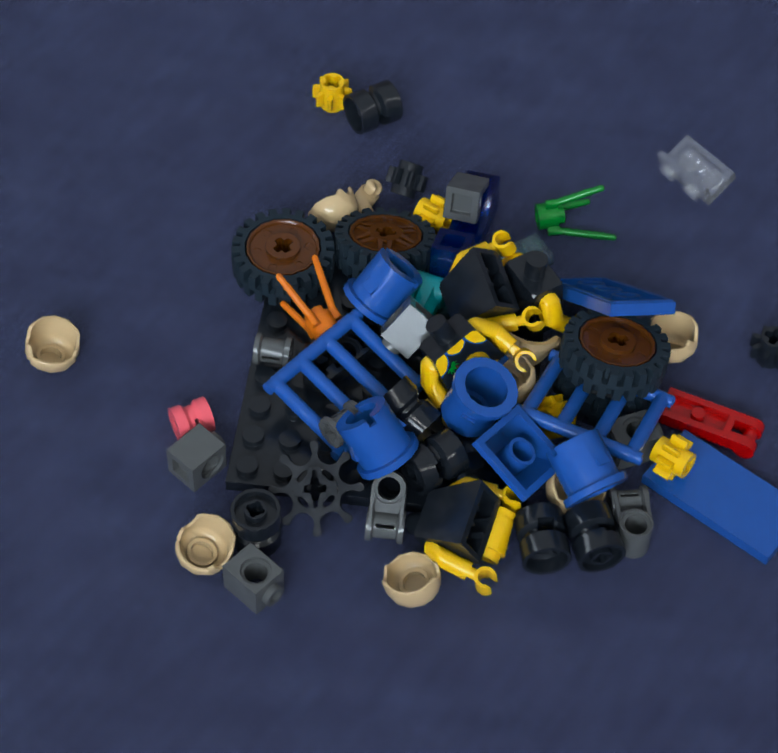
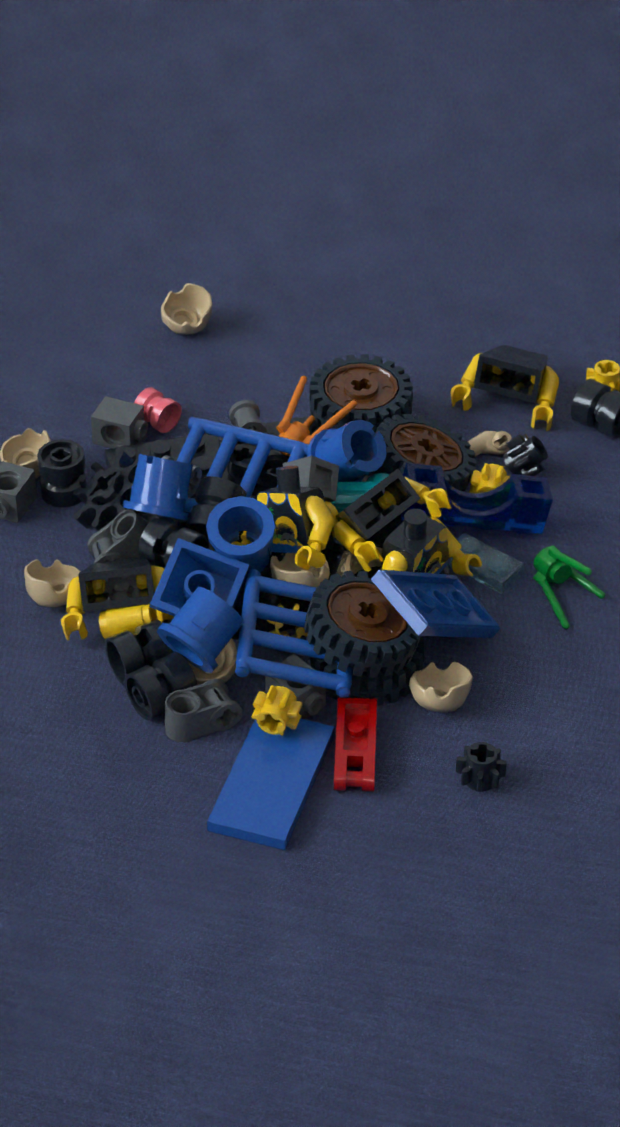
camera: 70 degrees right, 10 degrees down
(299, 145) = (511, 374): none -> black torso
(334, 207) = (448, 413): tan hair -> none
(464, 197) = (502, 472): dark grey panel -> none

